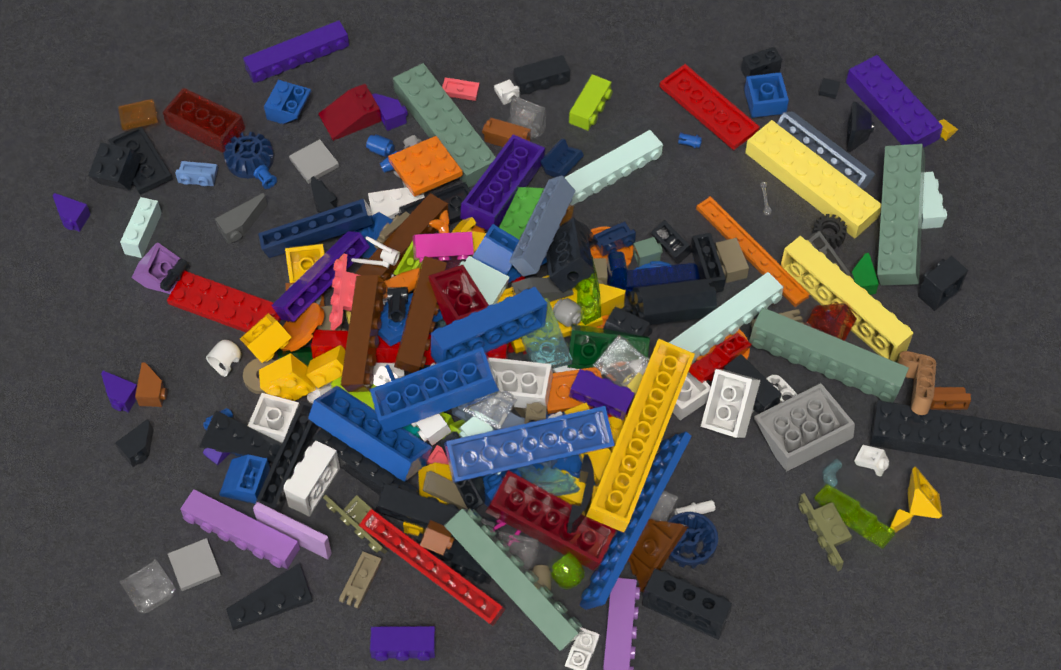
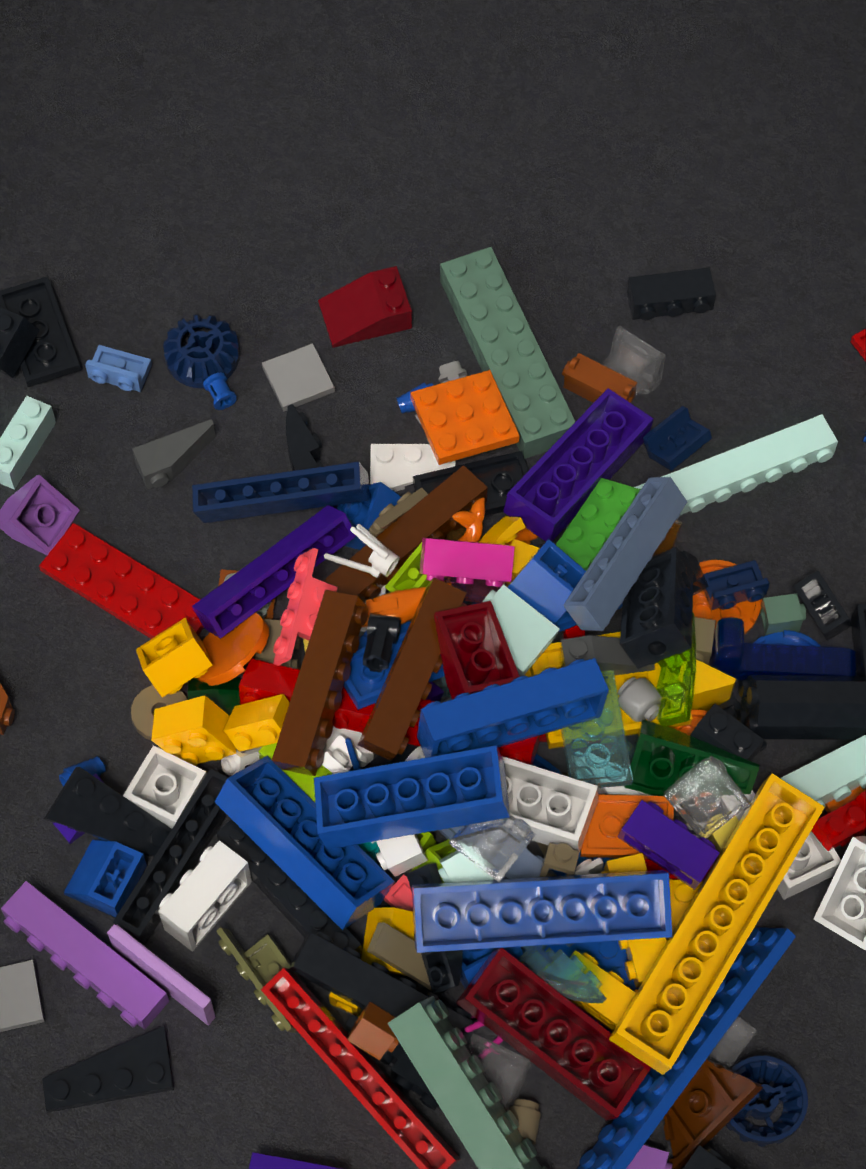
camera: 10 degrees right, 5 degrees up
(137, 114) = (46, 258): clear orange tile -> none
(174, 274) = (56, 528): black axle -> none
(203, 119) = (142, 284): clear red brick -> none
(224, 352) = (109, 670): white helmet -> none
(285, 102) = (272, 275): blue slope -> none
(296, 51) = (302, 194): dark purple brick -> none
(301, 259) = (252, 537): yellow slope -> none
(361, 579) = (251, 1069): dark tan hinge -> none
(380, 145) = (402, 369): blue brick -> none
(391, 111) = (429, 316): dark purple slope -> none
(461, 89) = (542, 296): coral plate -> none
(506, 90) = (612, 312): white bracket -> none
(567, 572) = (566, 1119): clear neon green helmet -> none
(579, 512) = (597, 1035): black slope -> none
(590, 102) = (738, 352): lime brick -> none
(700, 508) = (784, 1051): white axle -> none

